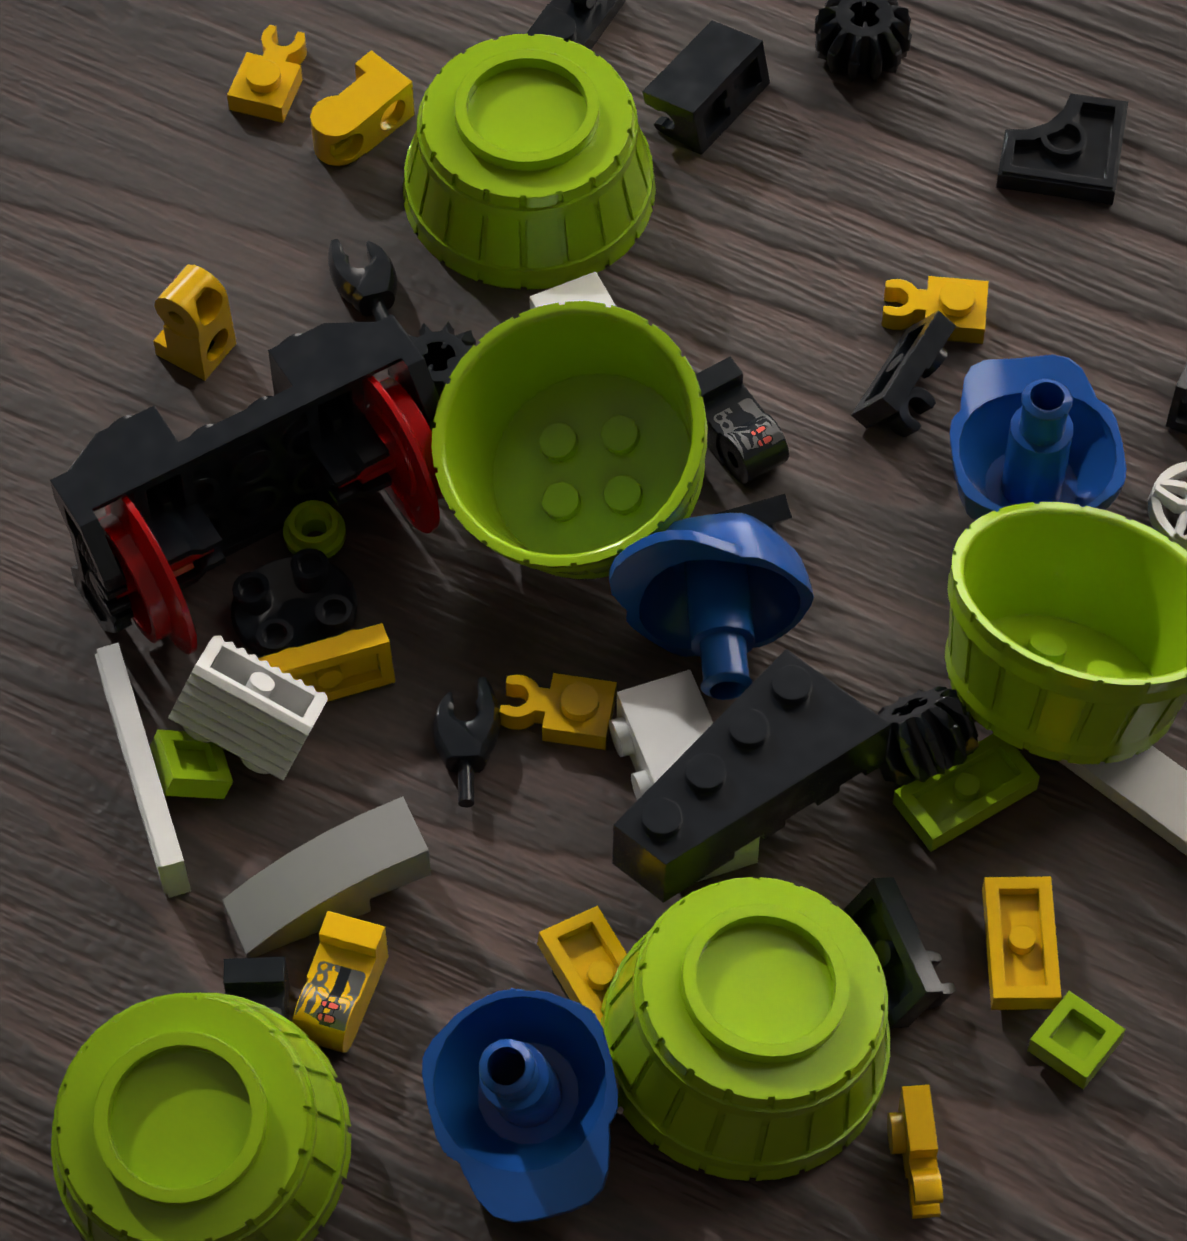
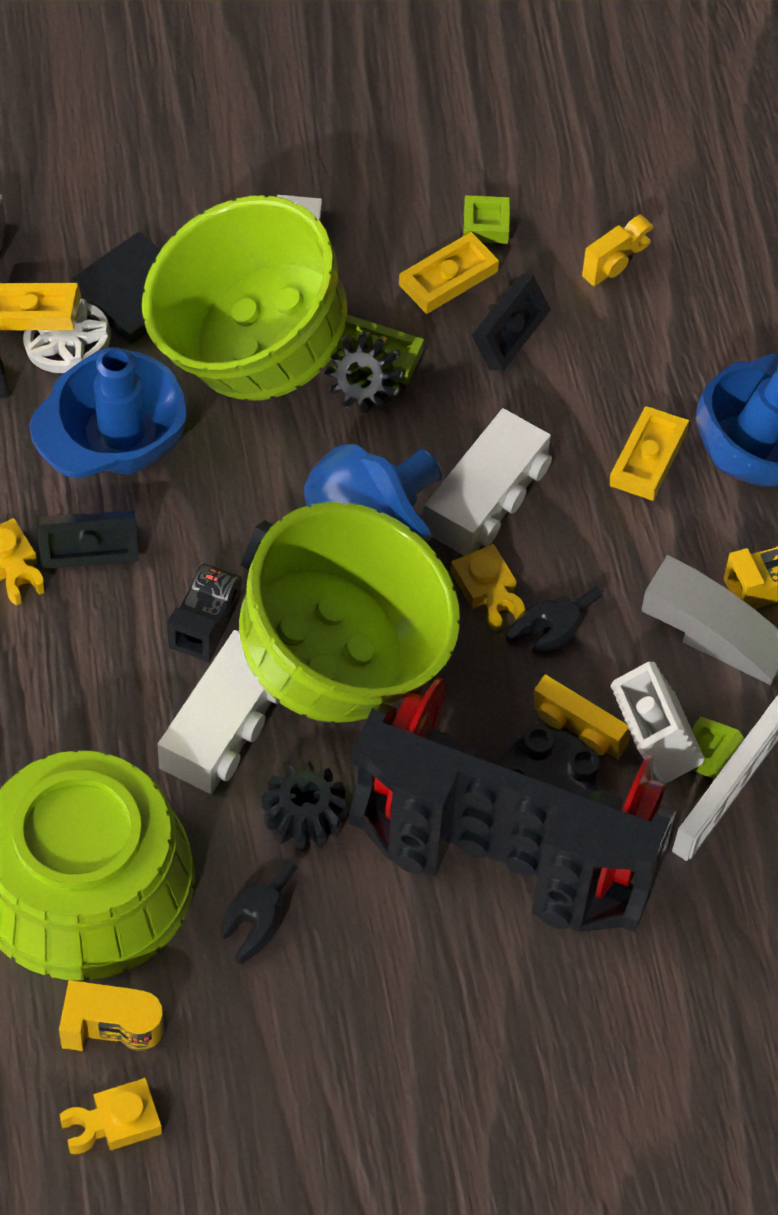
camera: 130 degrees left, 0 degrees up
(193, 315) = (393, 981): yellow leg -> none
(749, 1030) = (622, 347): lime piece -> none
(755, 767) = (490, 411): black wedge -> none

